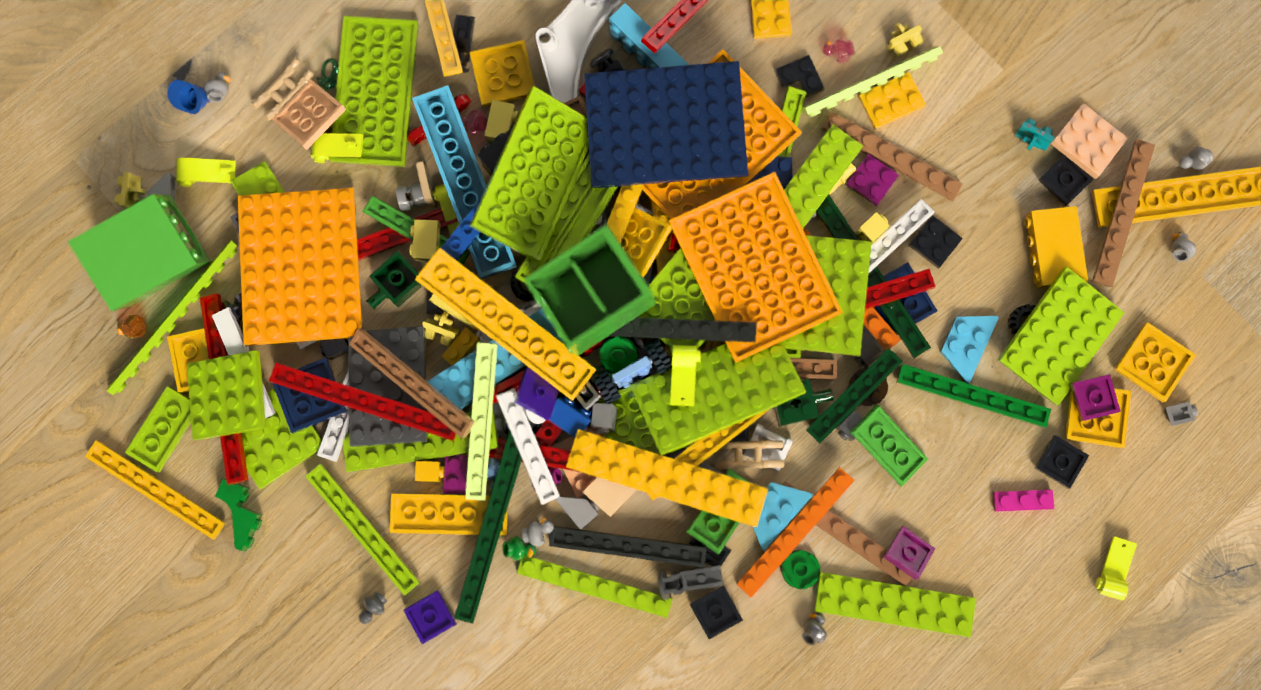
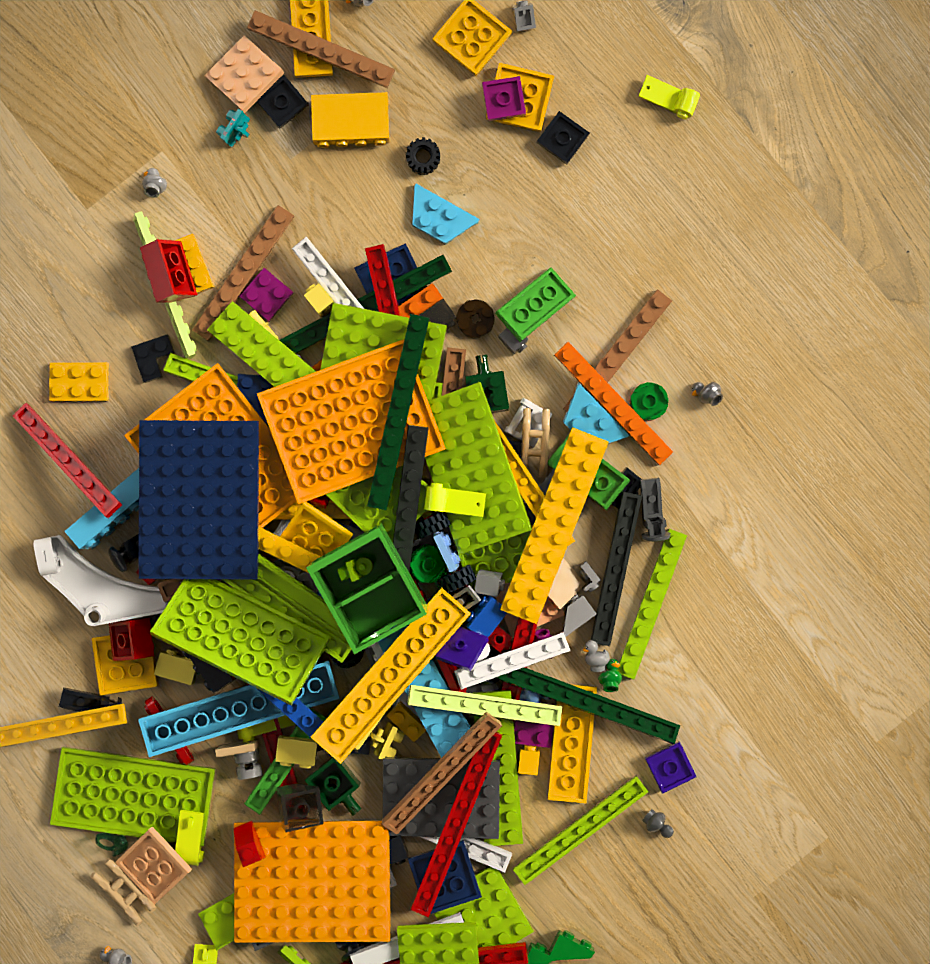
camera: 85 degrees left, 5 degrees up
(332, 200) = (248, 844): none -> red slope
(371, 247) = (299, 806): none -> clear smoke slope
(475, 121) = (174, 694): clear pink animal -> none
(523, 74) = (131, 639): none -> red slope
(608, 277) = (356, 568): none -> lime hips
(620, 518) = (588, 573): none -> light grey bracket
(716, 612) = (685, 487): black plate -> none
(769, 311) = (398, 412): none -> dark green plate
(843, 50) = (128, 312): clear pink animal -> none
(854, 395) = (484, 333): dark green plate -> none
(887, 81) = (168, 271): none -> red slope
(895, 604) = (688, 313): lime plate -> none
(898, 43) = (127, 255): light yellow hips -> none
(909, 553) = (641, 294): magenta plate -> none
(935, 242) = (335, 237): black plate -> none
(971, 63) = (153, 183): none -> light grey animal
(973, 395) = (492, 216): green plate -> none
(1023, 500) = (597, 178): dark pink plate -> none
(1061, 336) = (440, 125): lime plate -> none

